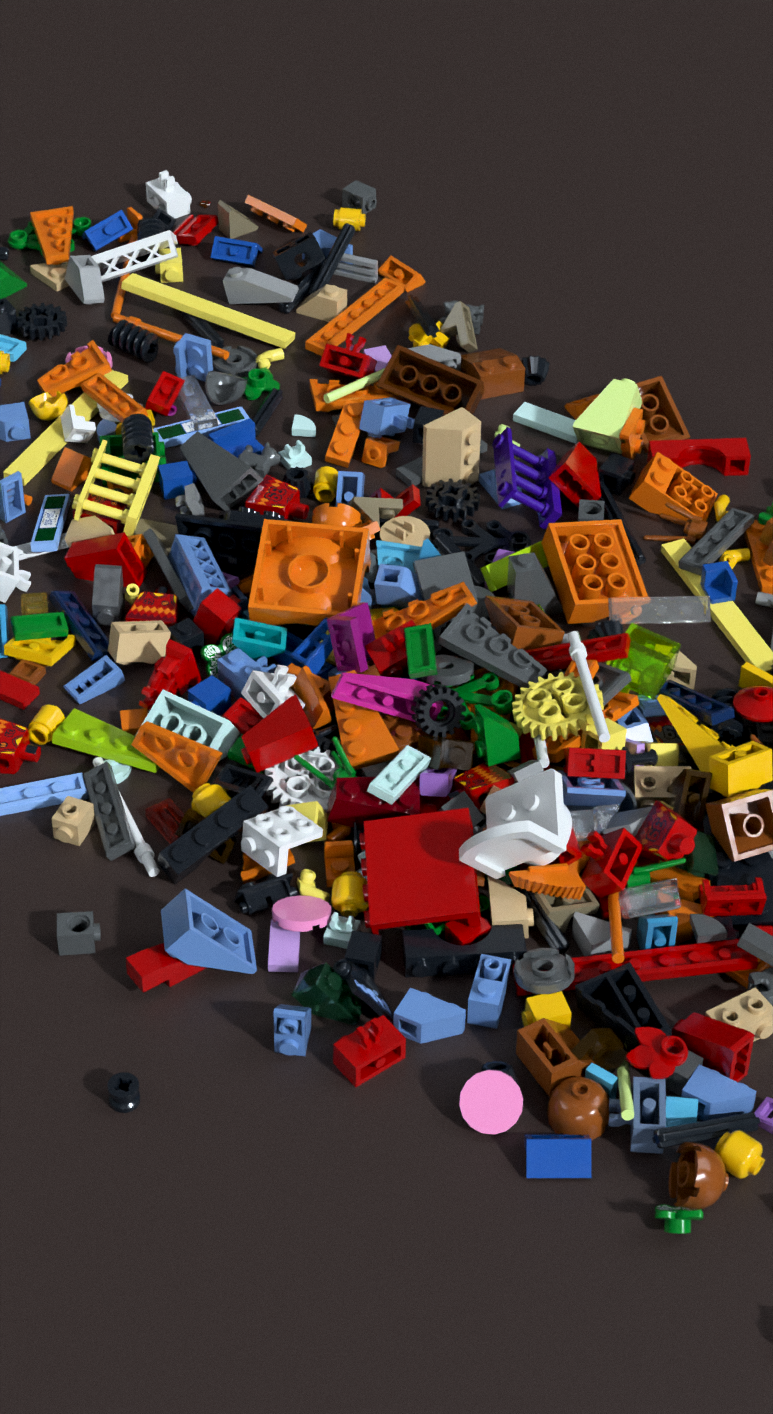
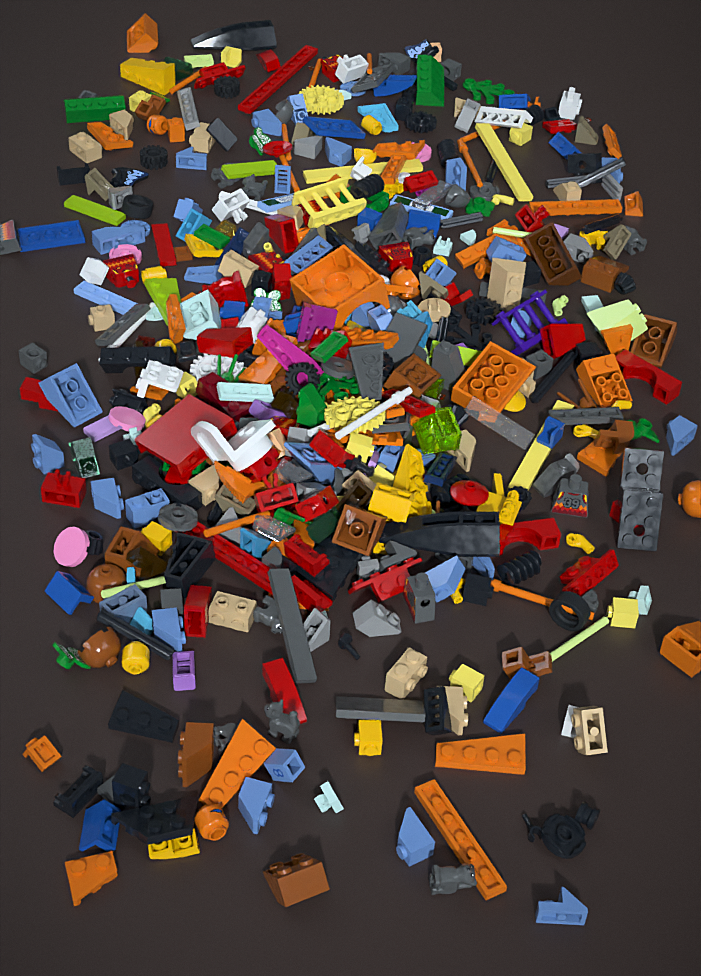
camera: 45 degrees right, 0 degrees up
(54, 233) = (485, 88): orange wing -> none
(253, 286) = (542, 164): light grey slope -> none
(258, 638) = (285, 299): teal slope -> none
(349, 216) = (646, 164): yellow brick -> none
(359, 196) = (667, 158): dark grey brick -> none
(363, 987) = (98, 462): black arm -> none
(655, 1052) = (159, 585): red plate -> none

